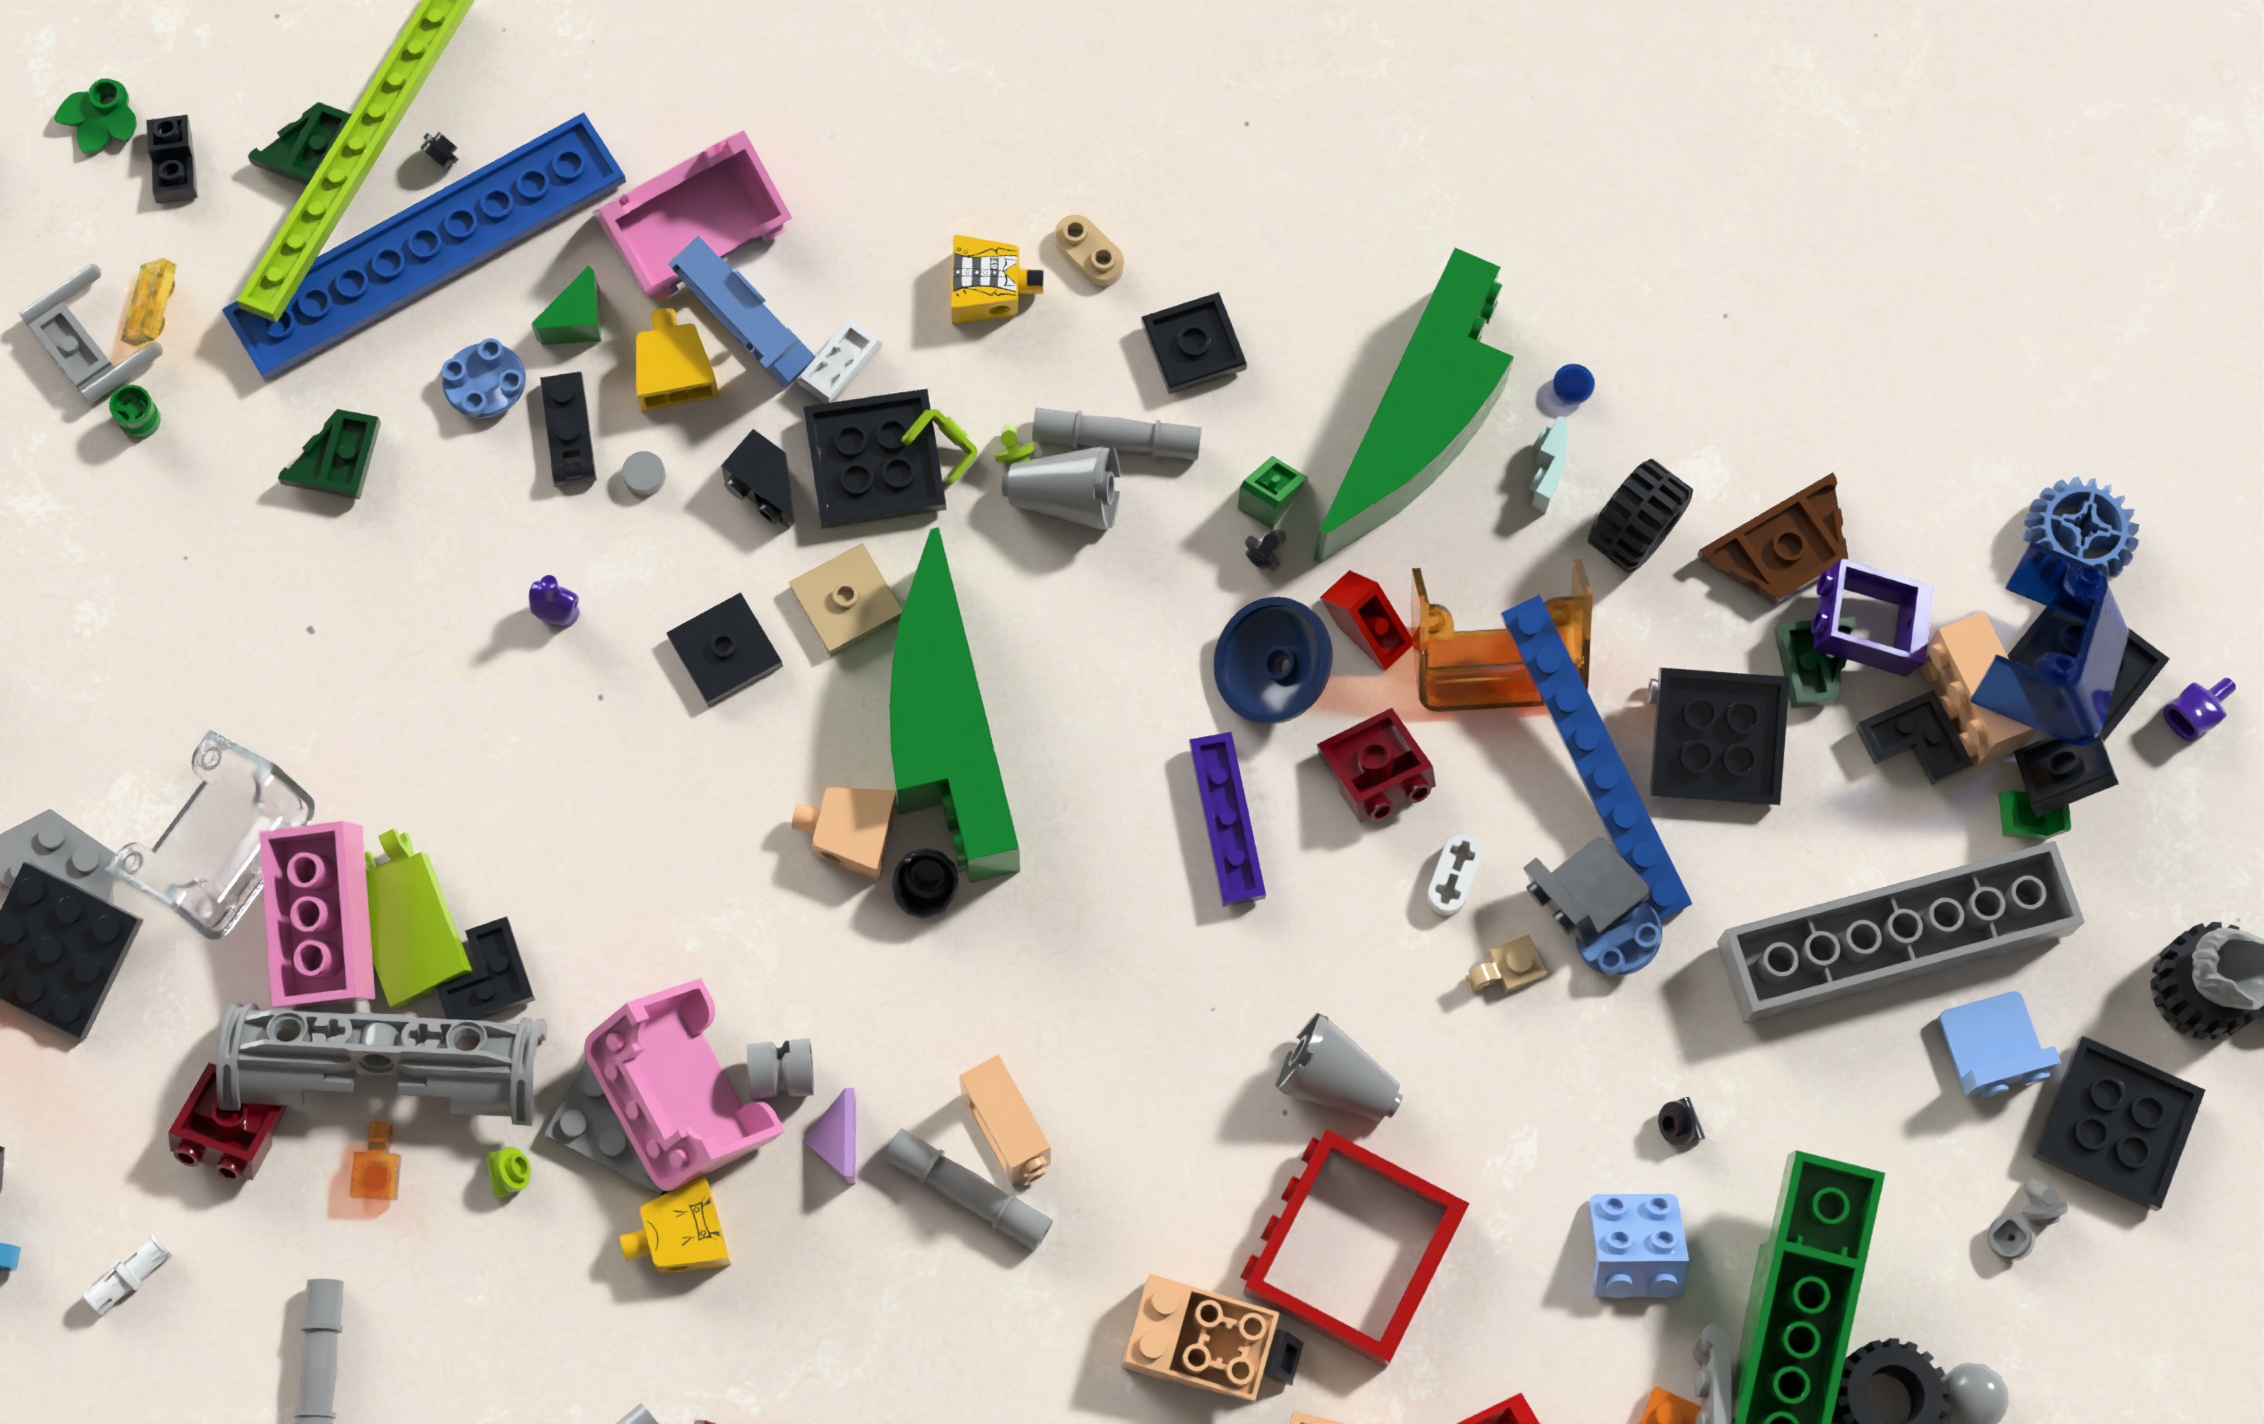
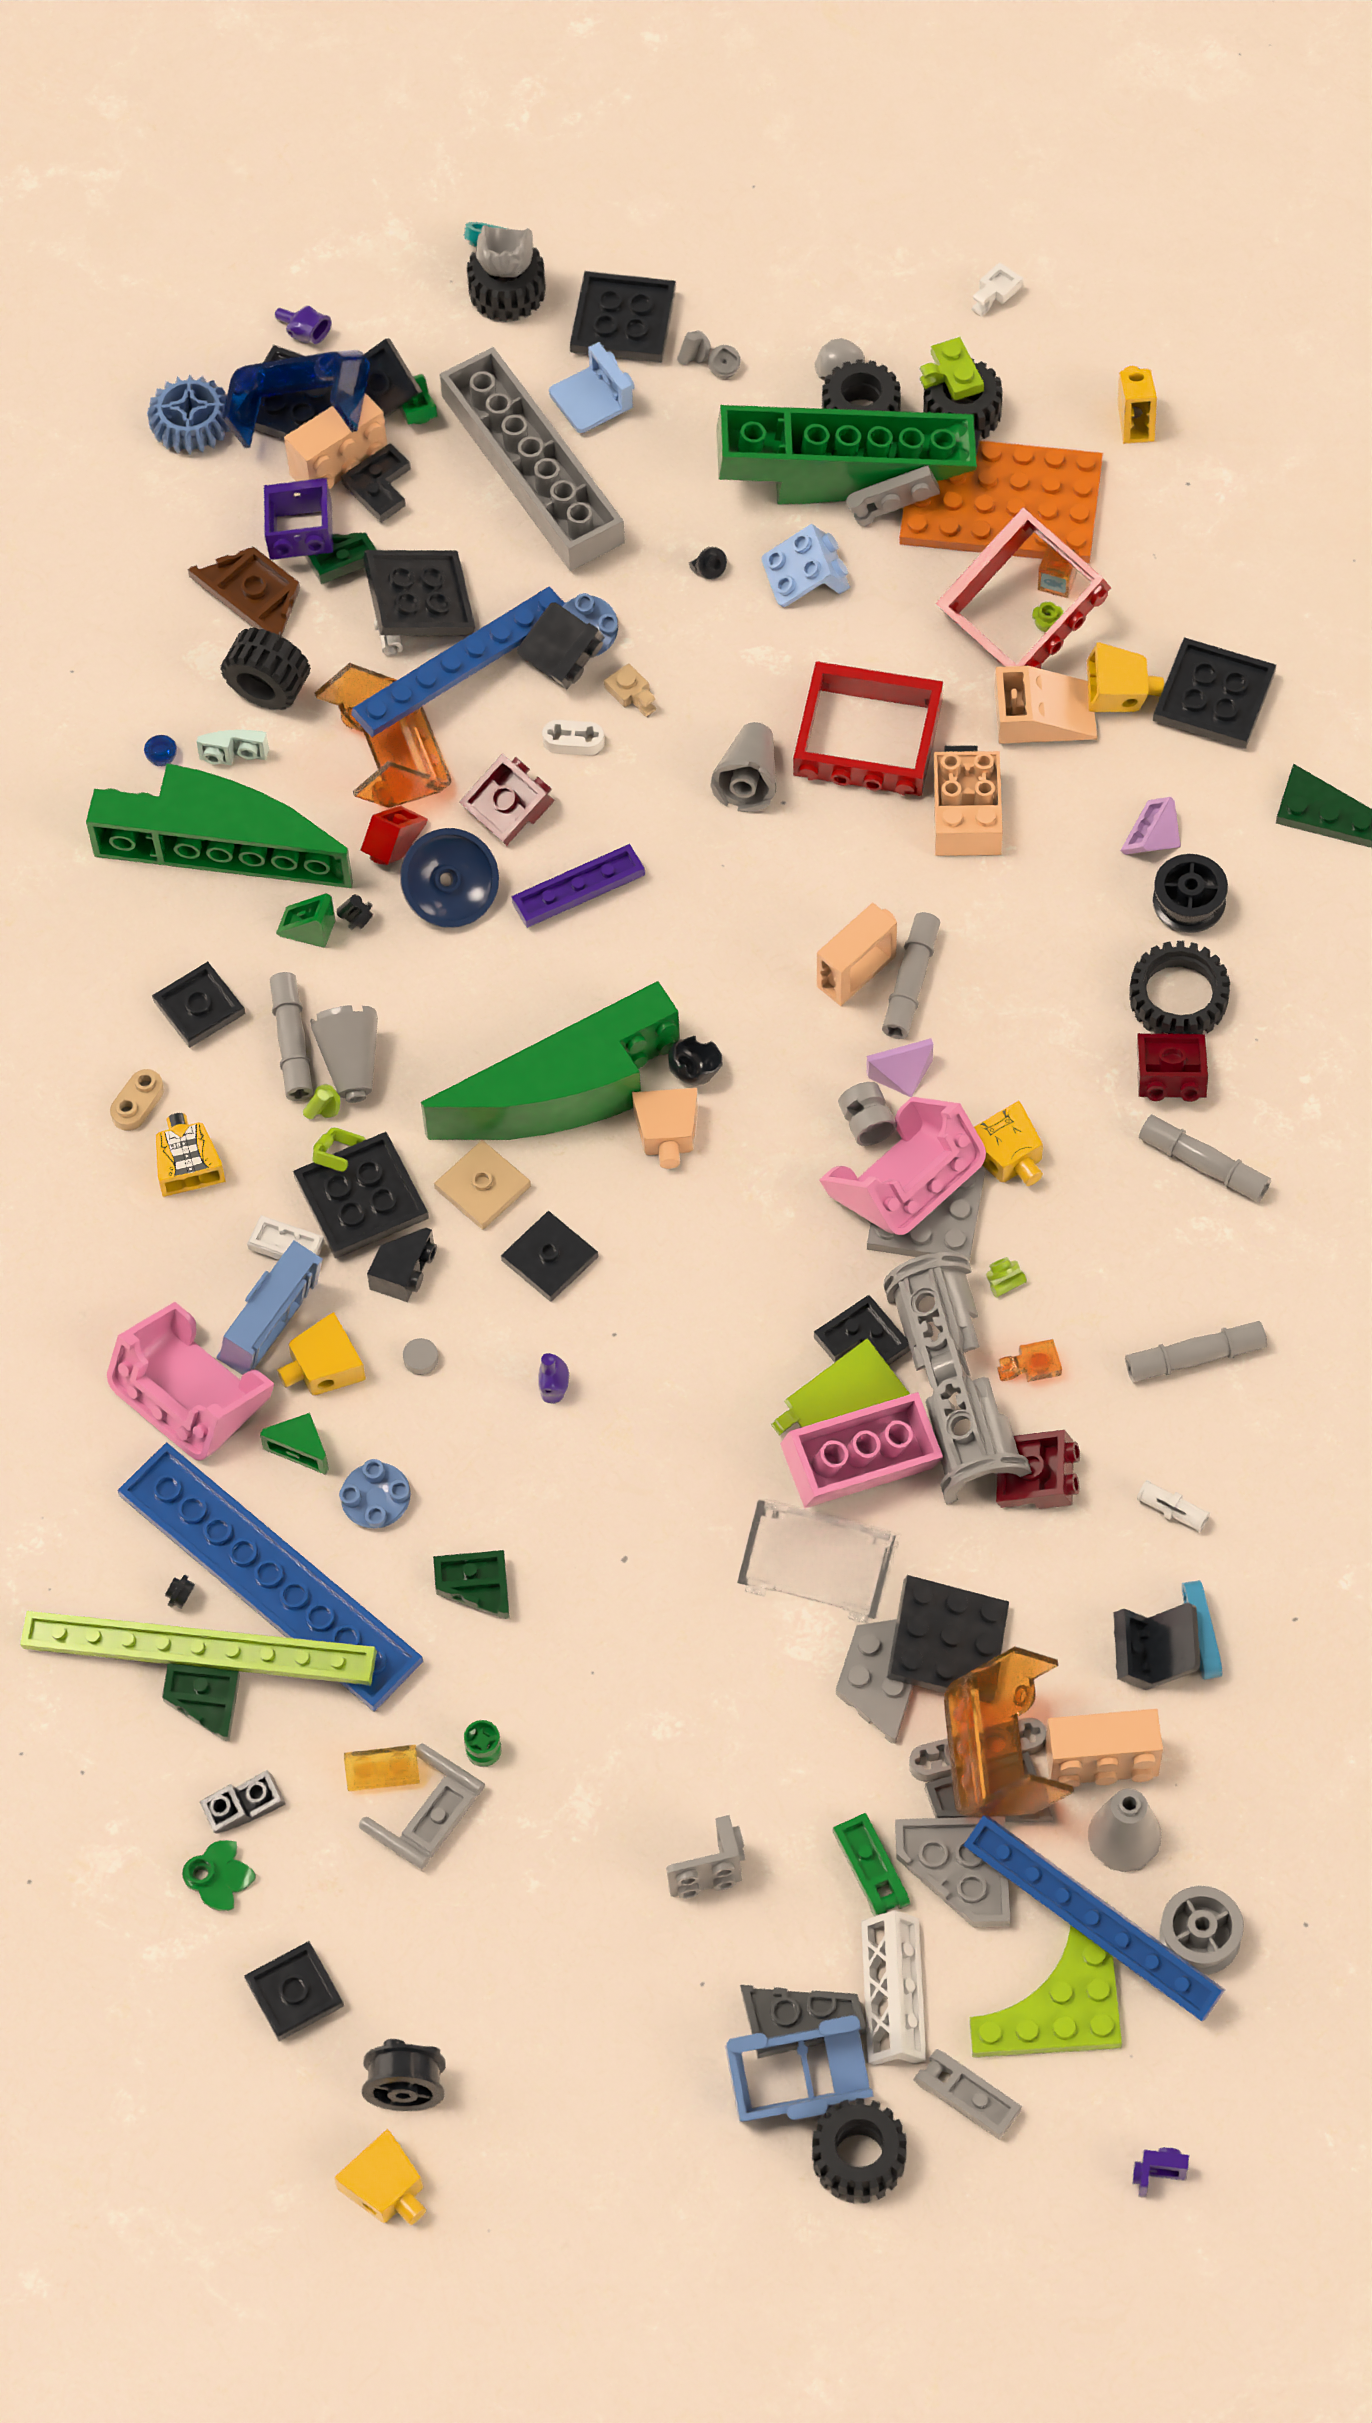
camera: 100 degrees left, 10 degrees down
(568, 427) = (399, 1422): black plate -> none

